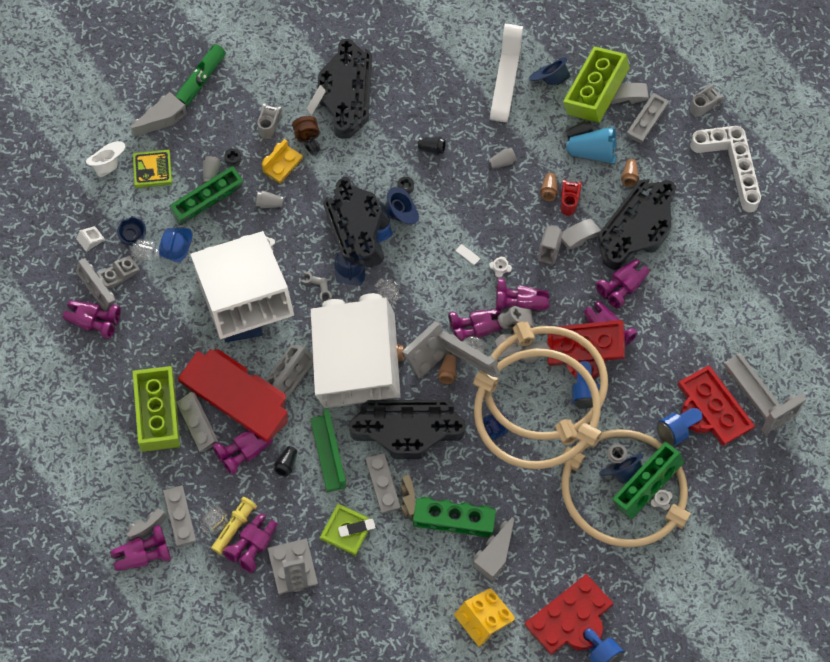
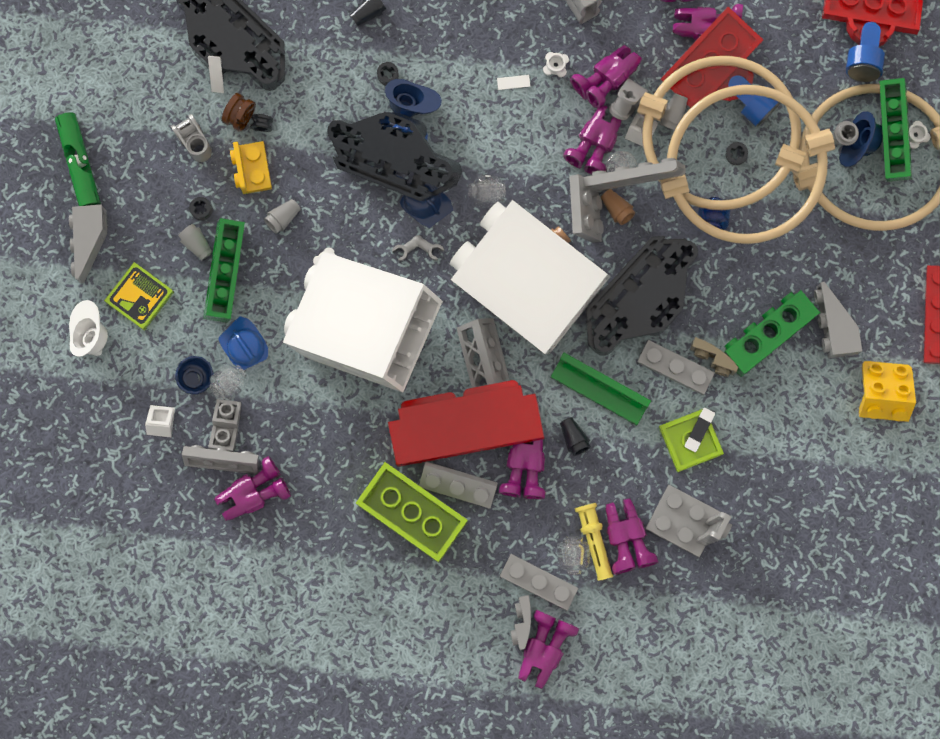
camera: 45 degrees left, 15 degrees up
(550, 403) = (734, 146): none -> black bush

